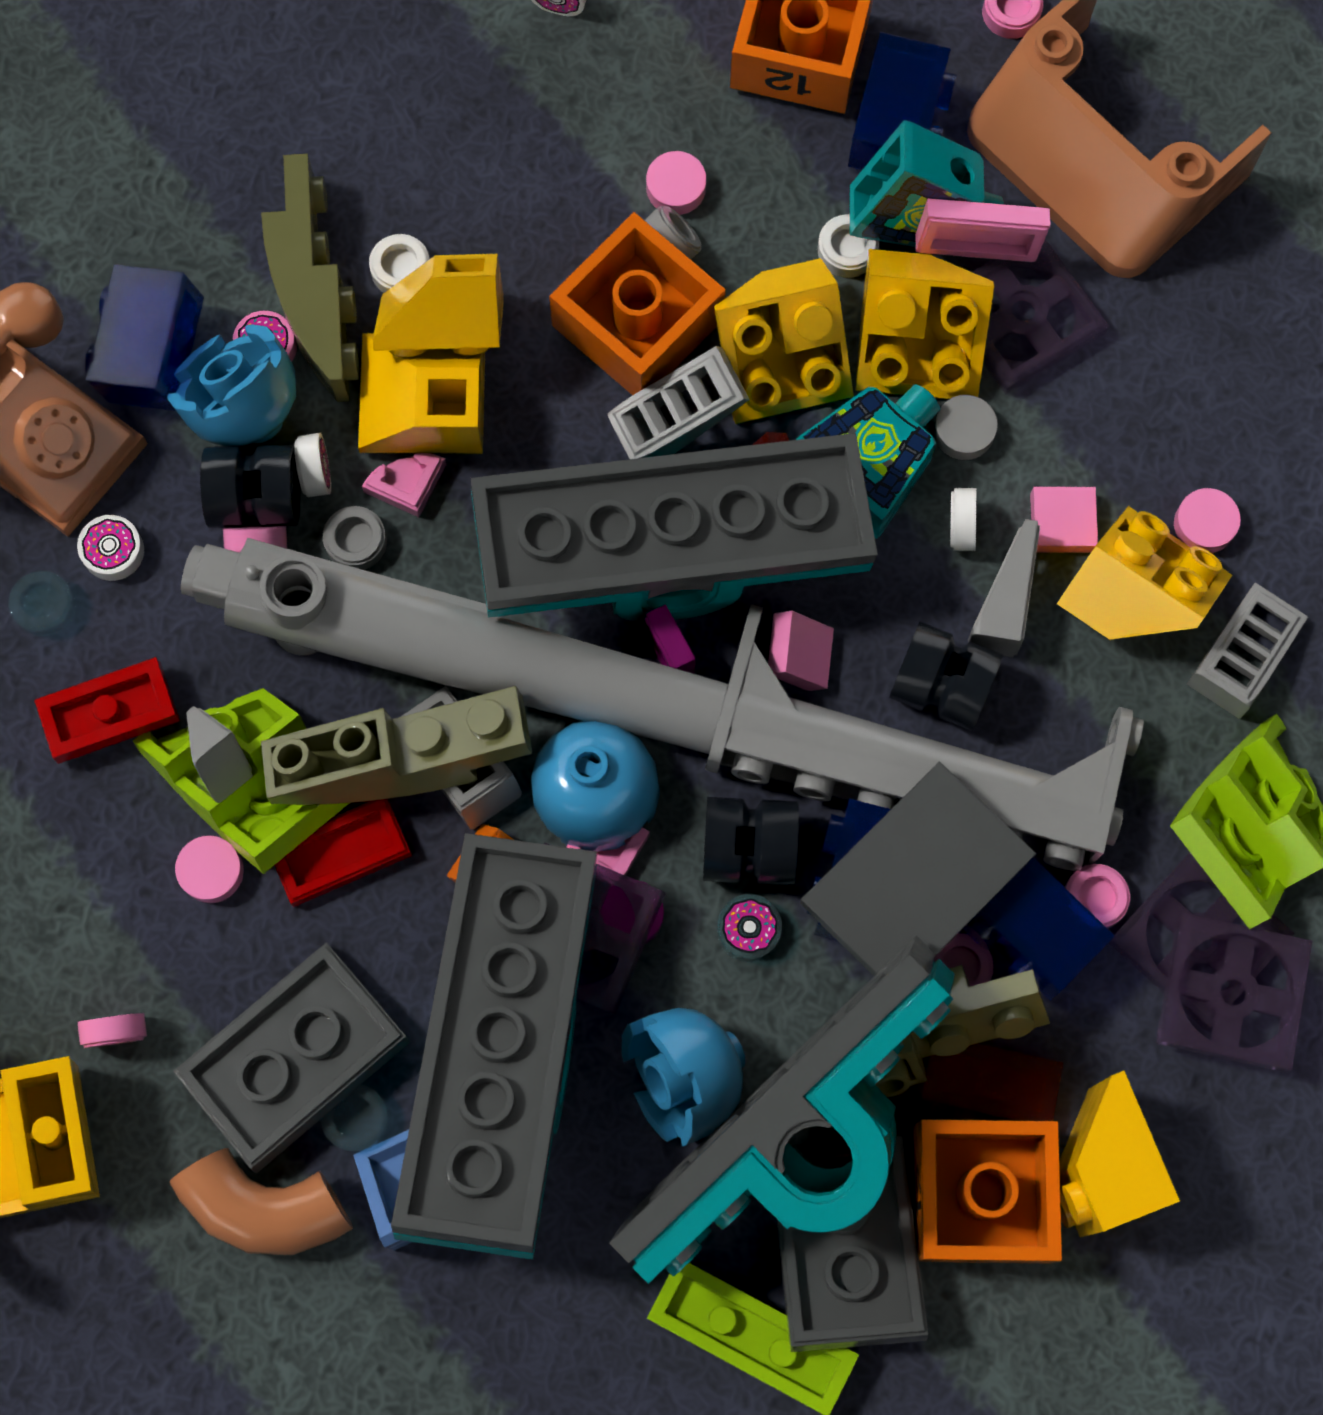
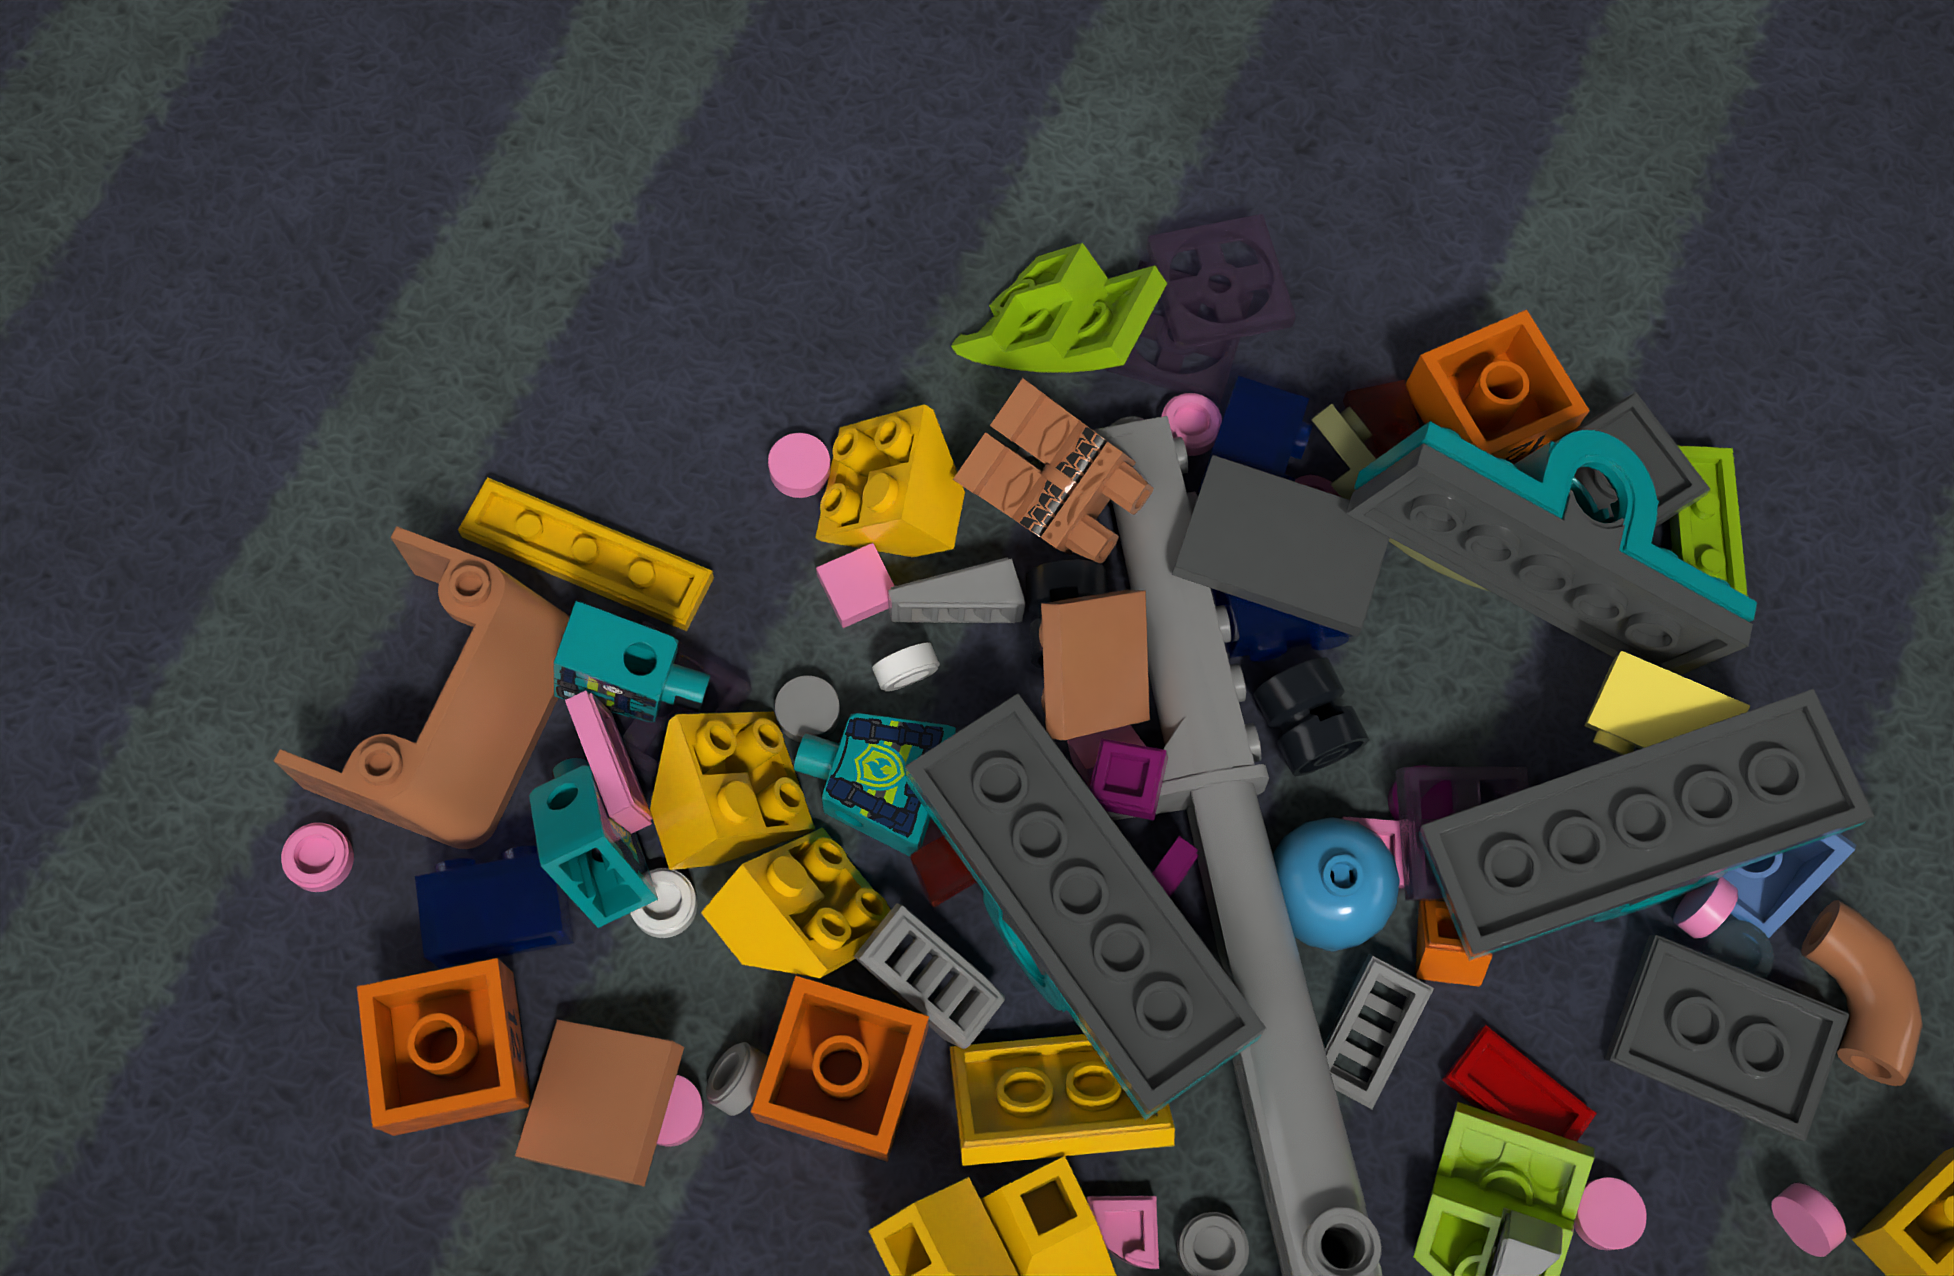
camera: 120 degrees left, 5 degrees down
(398, 757) = (1423, 1074): olive slope -> none
(400, 1097) = (1706, 908): none -> bright pink tile
(531, 425) = (1045, 1103): none -> yellow tile
(603, 1154) = (1650, 705): none -> light yellow slope
(688, 1072) = (1540, 676): dark azure cylinder -> none
(704, 126) = (600, 1102): none -> nougat tile
(749, 928) = (1378, 691): tile -> none
(764, 632) = (1128, 778): none -> magenta tile
(878, 642) = (1094, 663): none -> nougat tile
(1073, 251) = (605, 649): none -> teal torso
(1086, 710) = (1071, 488): none -> nougat hips
(1111, 1162) = (1425, 306): yellow slope -> none
(1196, 308) = (586, 554): none -> yellow tile
(1223, 688) = (927, 366): light grey slope -> none

